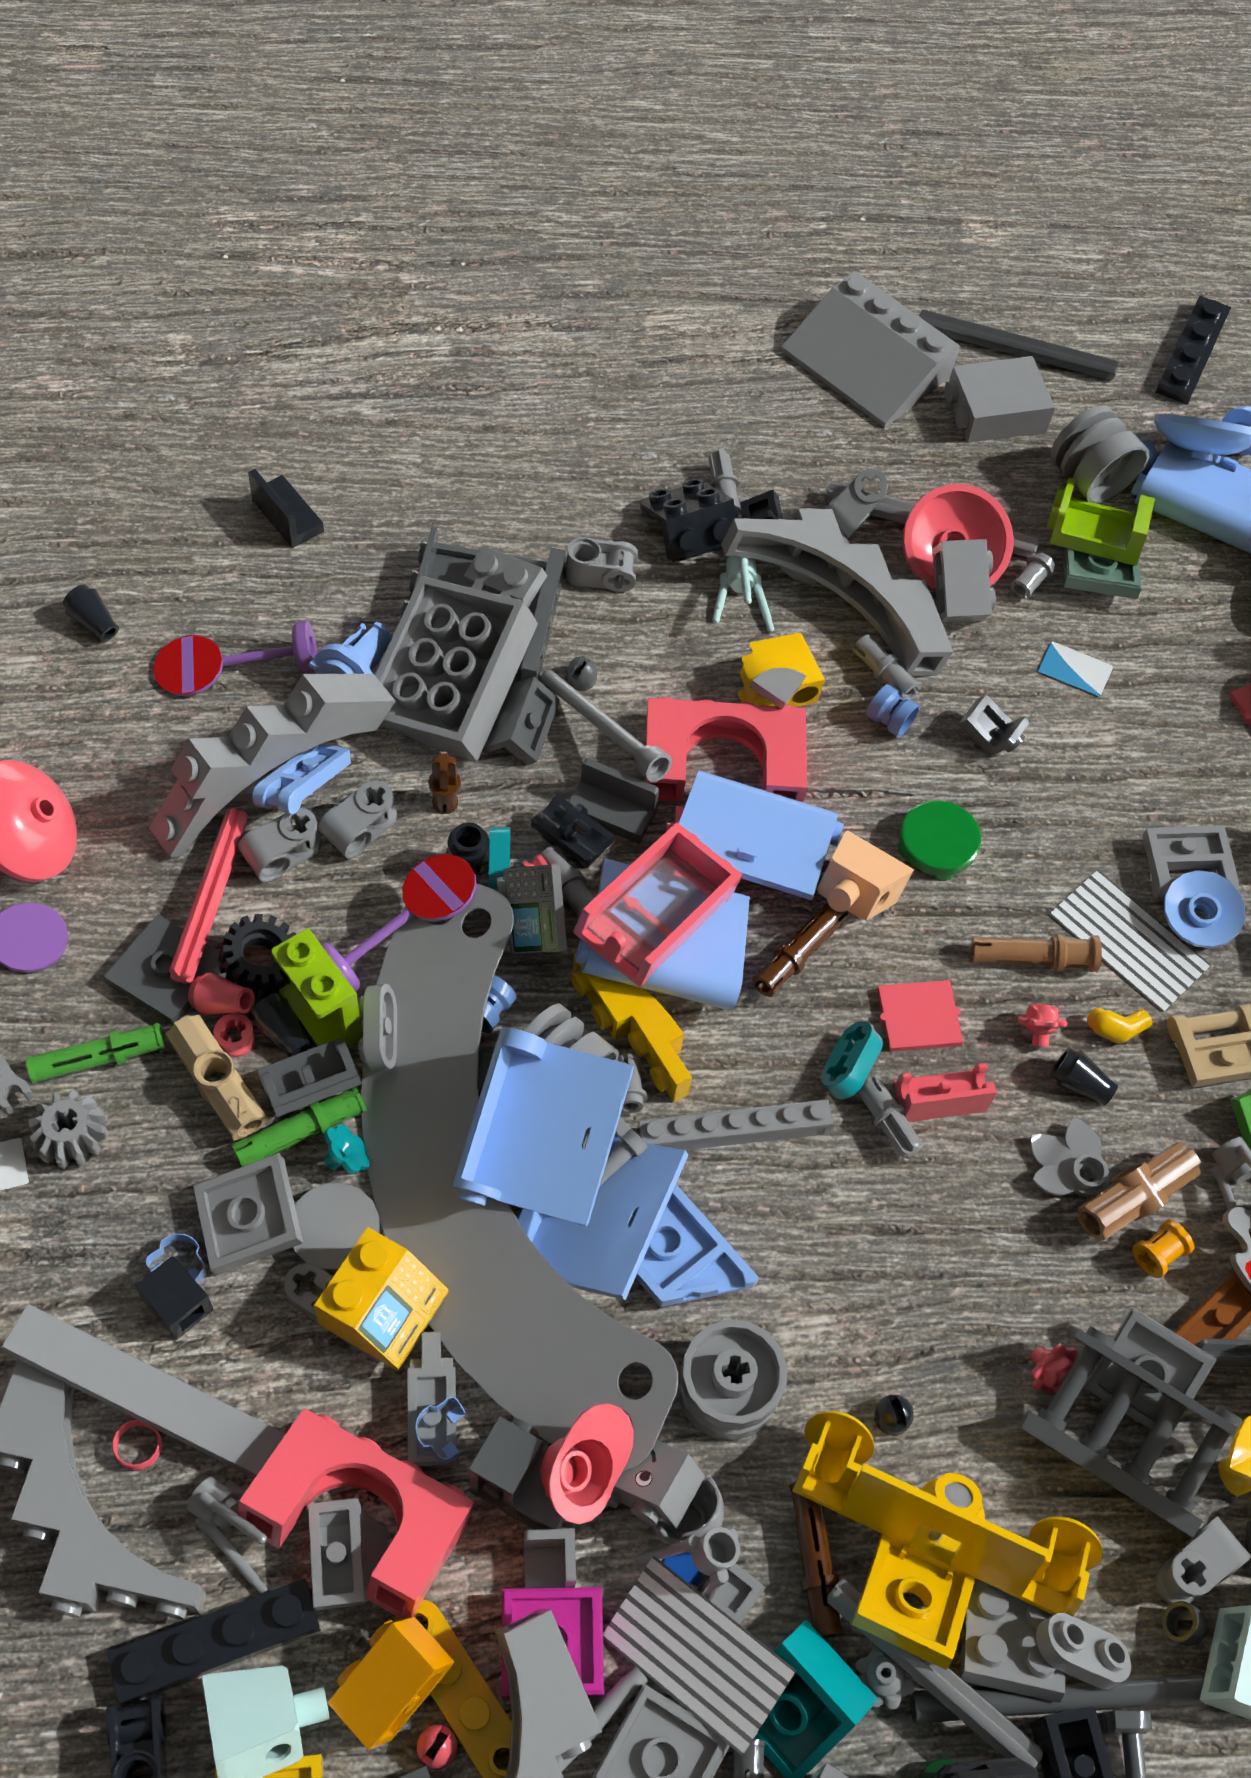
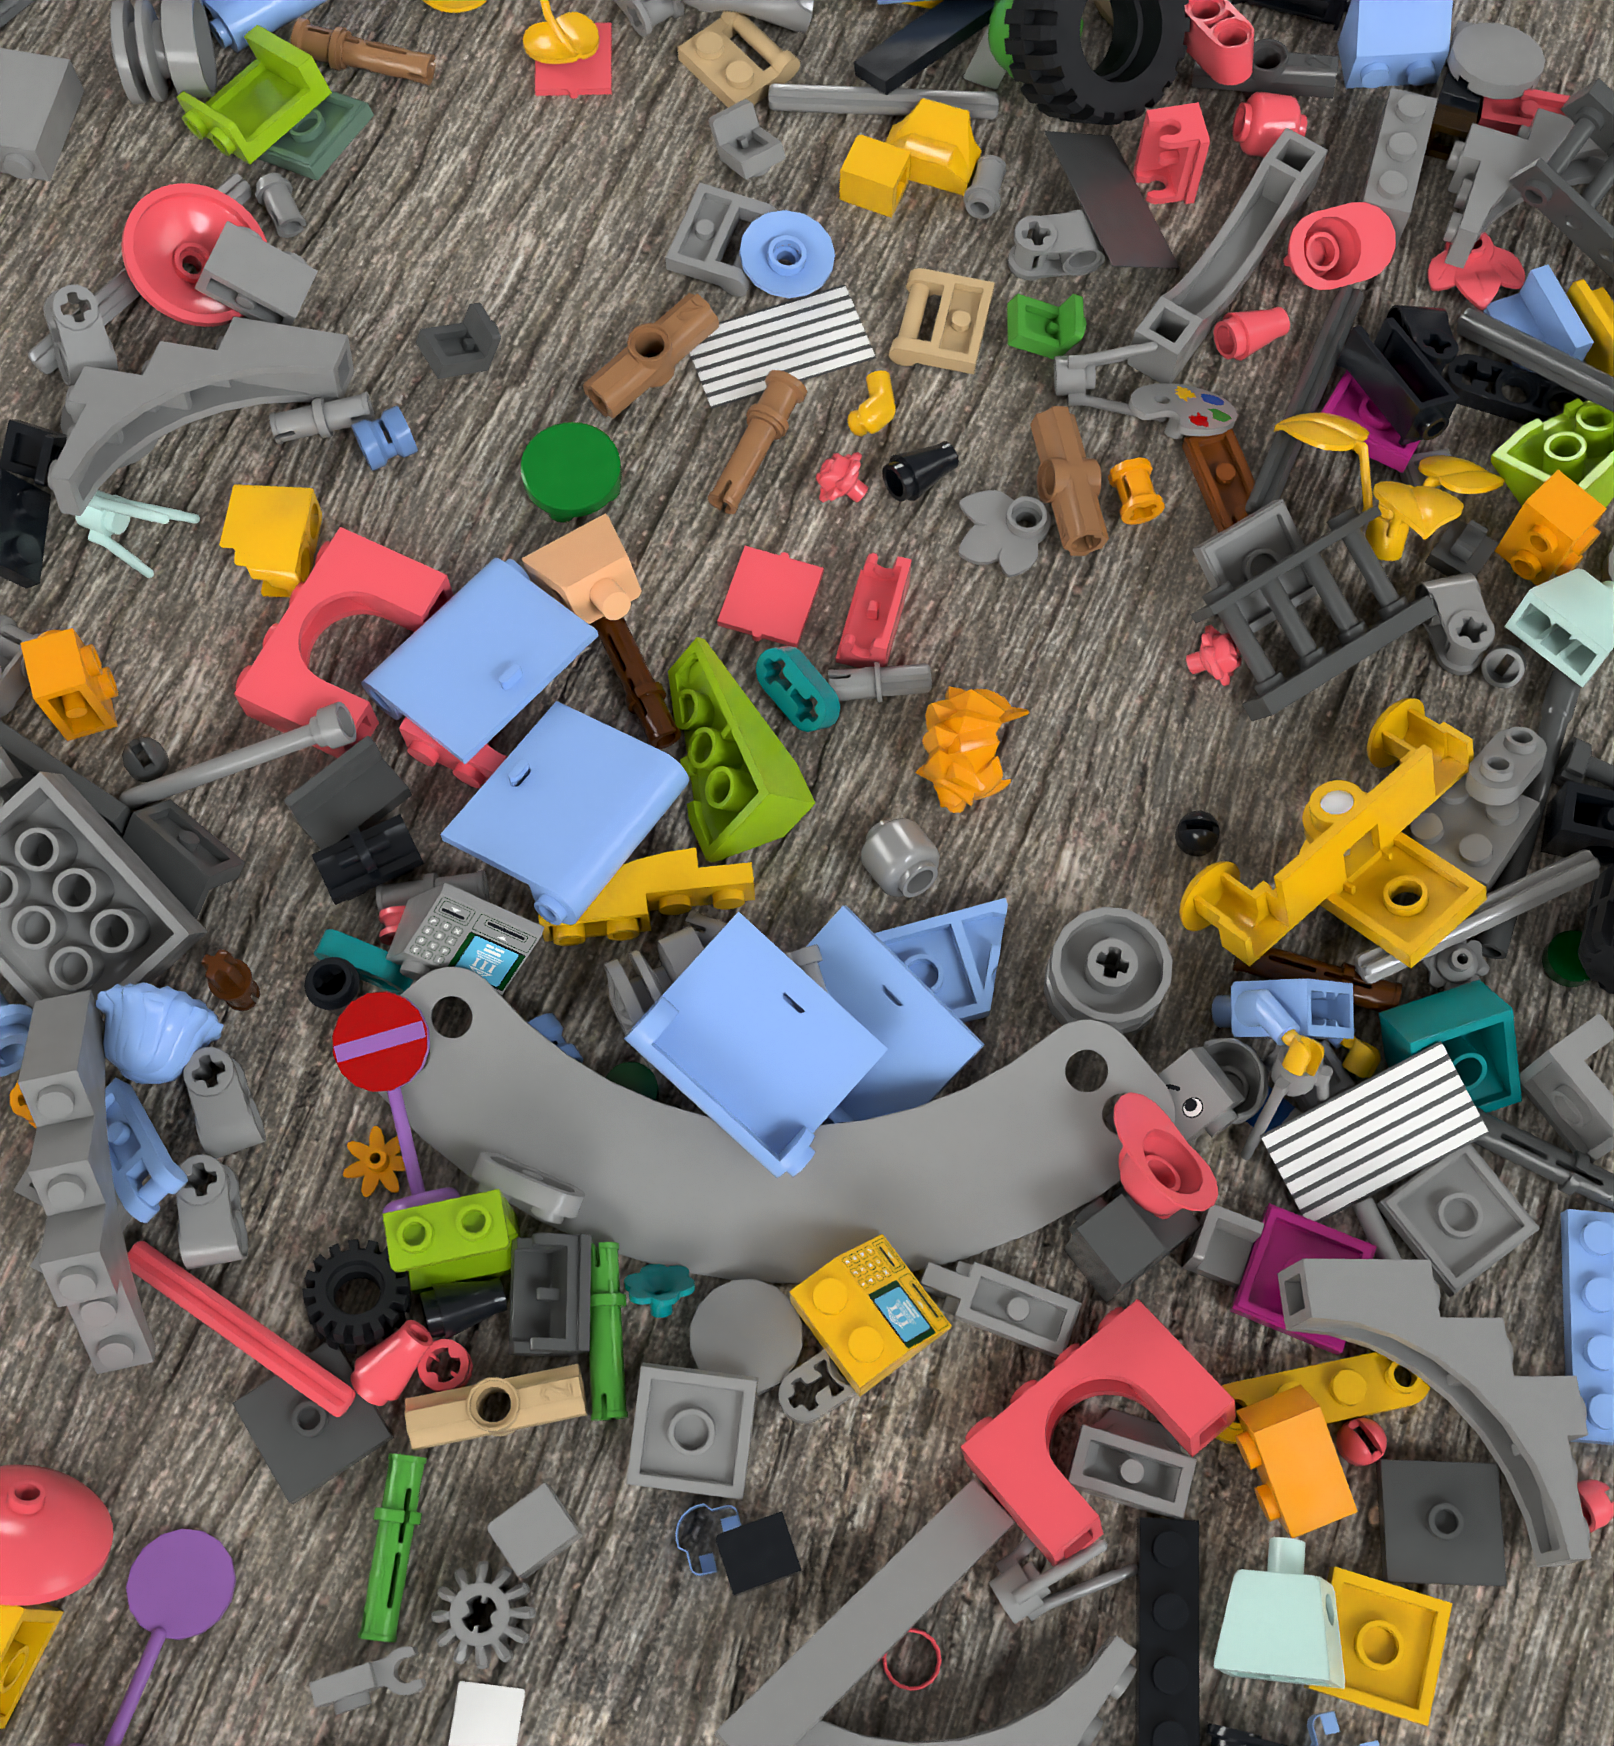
camera: 60 degrees left, 10 degrees up
(138, 1138) = (534, 1531): none -> light grey panel
(360, 931) = (376, 1172): none -> light orange plant
(387, 753) = (154, 1030): none -> light blue hair
(454, 1415) = (1064, 1303): light blue piece -> none
(604, 602) = (70, 683): none -> light orange brick
(657, 903) = (542, 797): door -> none
(738, 1126) = (818, 844): light grey piece -> none
(753, 1187) = (900, 857): none -> light grey head
(768, 1047) = (739, 770): none -> lime wedge
(770, 1545) = (1295, 1015): none -> light blue torso
(778, 685) = (299, 540): light grey tile -> none
(865, 1194) = (964, 745): none -> light orange hair
(1075, 668) = (422, 226): sticker -> none
(1082, 857) = (632, 374): none -> medium nougat piece
(1178, 560) = (344, 50): none -> medium nougat pin

